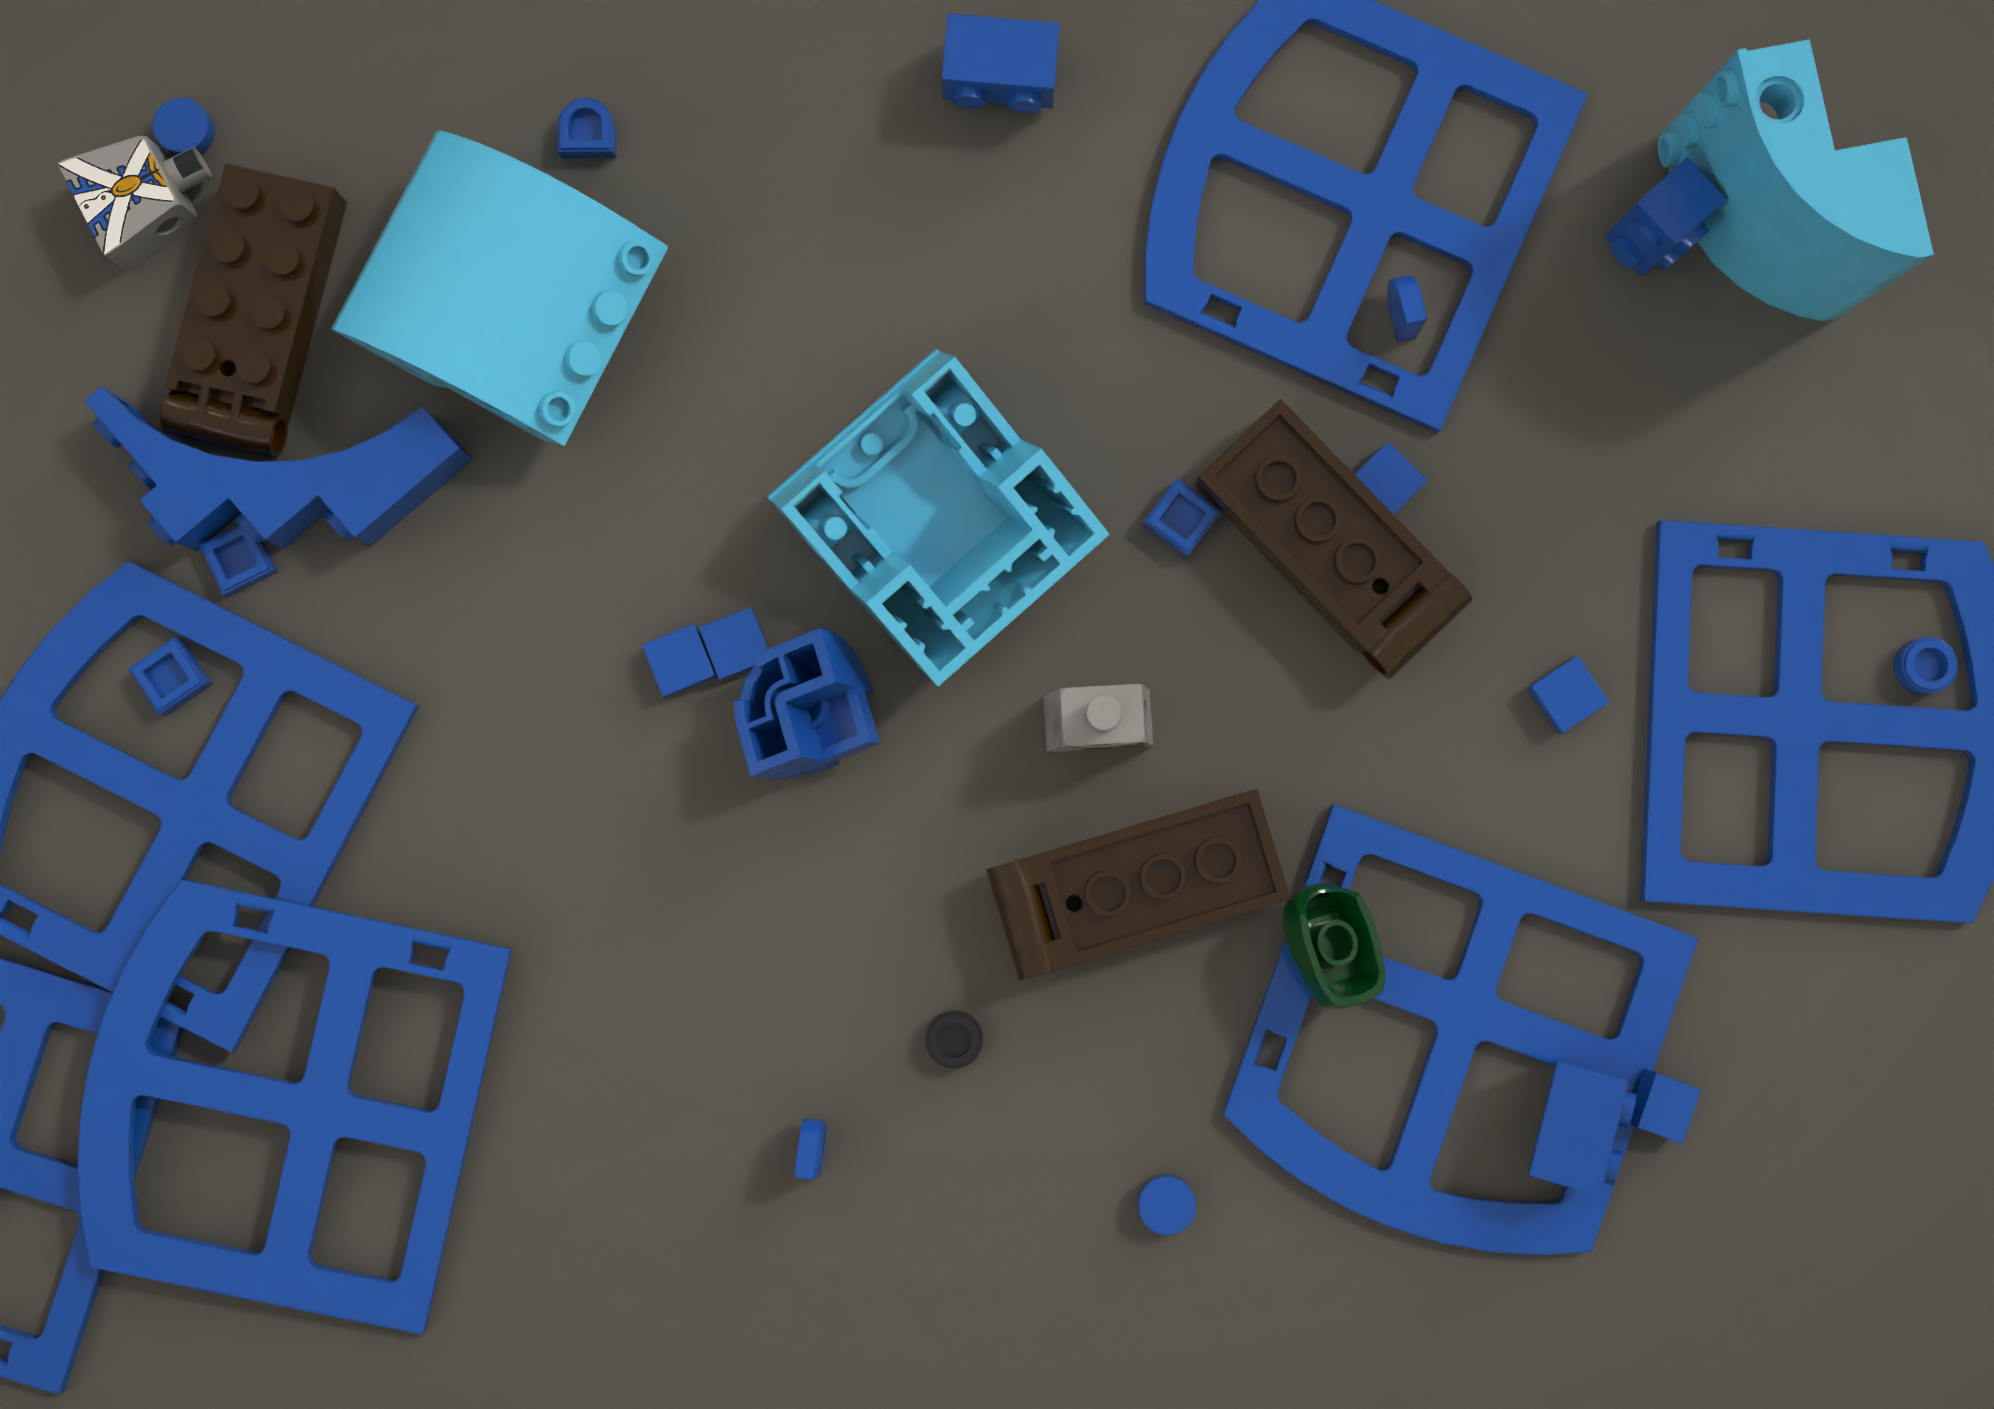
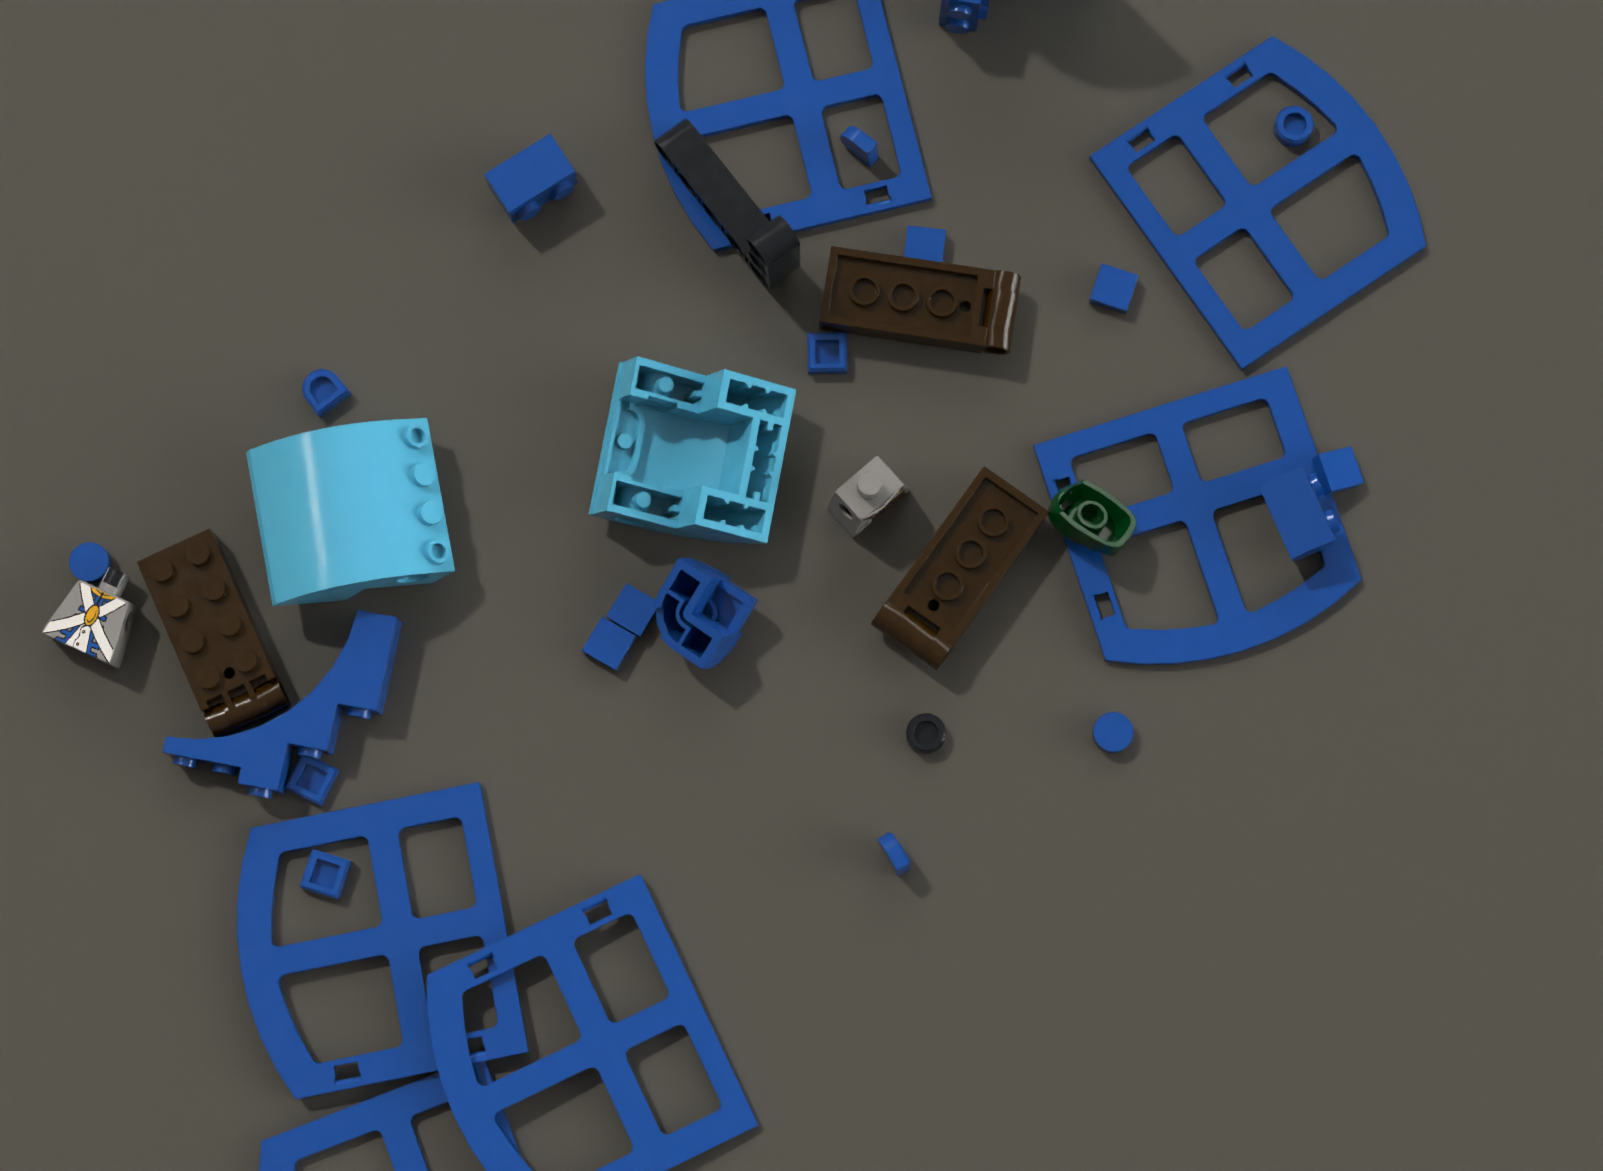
camera: 35 degrees left, 5 degrees down
(1203, 333) = (765, 246): none -> black beam

